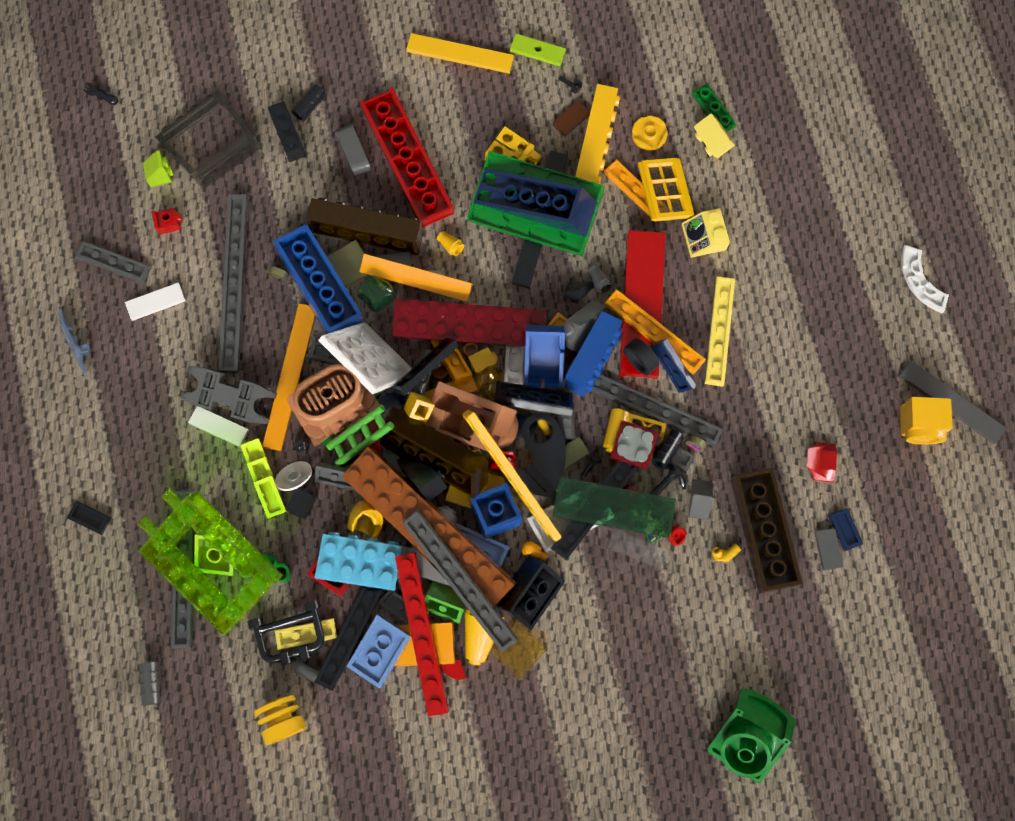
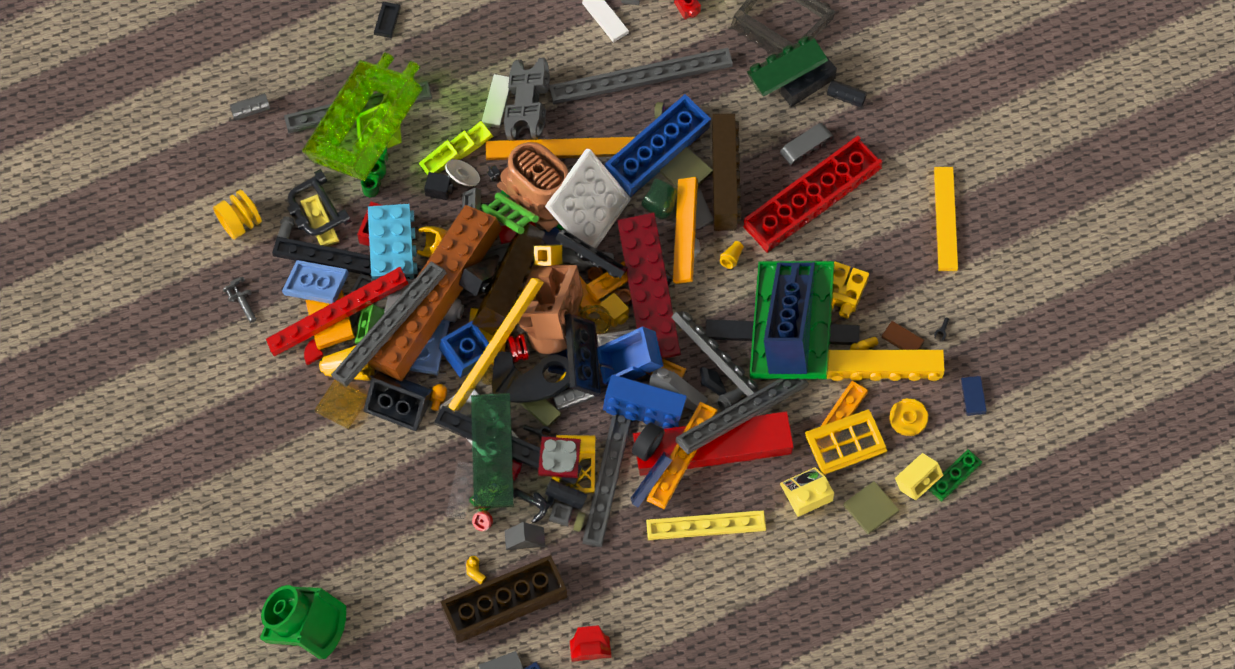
camera: 80 degrees right, 10 degrees down
(270, 142) = (787, 65): none -> dark green slope
(376, 734) = (241, 298): none -> dark grey piece
(547, 52) = (970, 280): lime tile -> none
(547, 282) = (711, 348): none -> dark grey plate
(572, 149) = (865, 344): none -> yellow arm
(625, 273) = (739, 413): none -> dark grey tile
(641, 75) = (973, 395): none -> dark blue tile
(731, 185) = (871, 507): none -> olive tile

